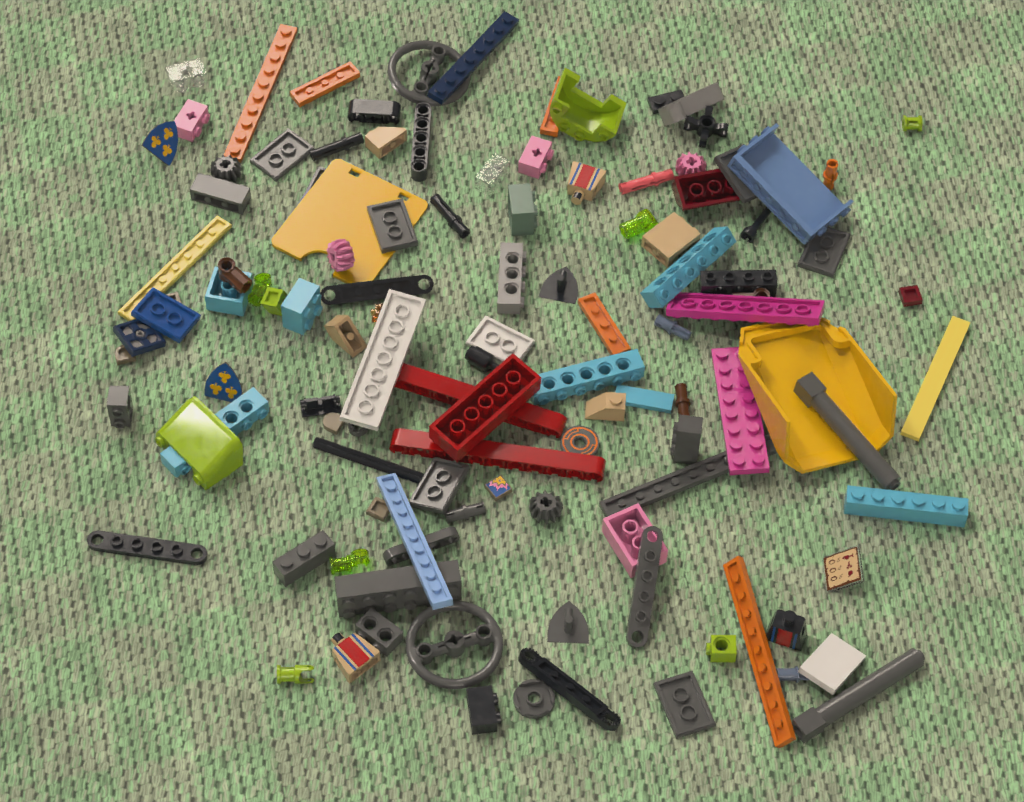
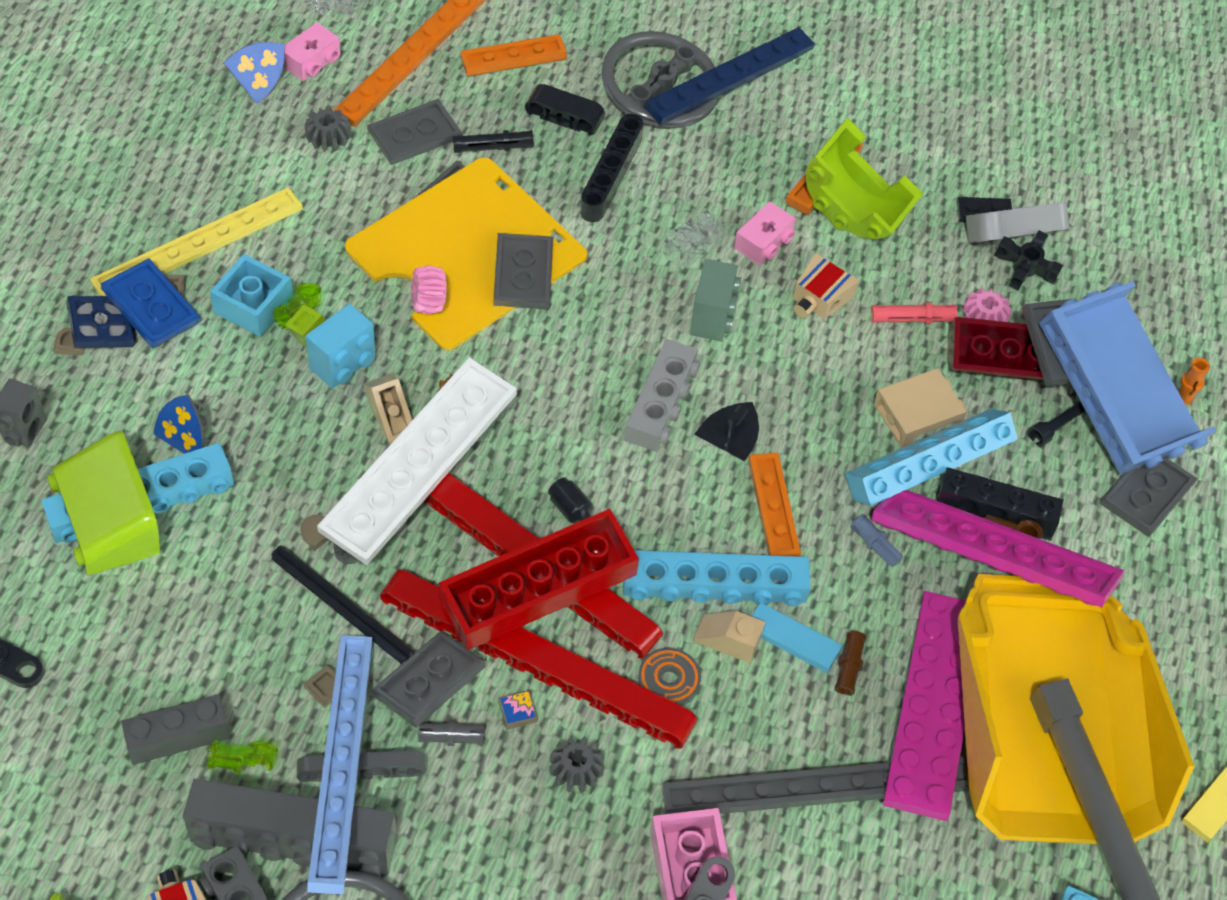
camera: 15 degrees right, 0 degrees up
(220, 193) = (305, 158): brick -> none
(233, 275) = (259, 273): reddish brown piece -> none
(320, 406) = (306, 499): black hinge -> none
(375, 289) = (454, 353): black plate -> none
(385, 139) = (563, 150): tan slope -> none
(454, 221) = (614, 289): black pin -> none
(500, 340) = (611, 483): white tile -> none
(641, 223) = (886, 371): clear neon green piece -> none
(686, 439) = (832, 726): dark grey brick -> none

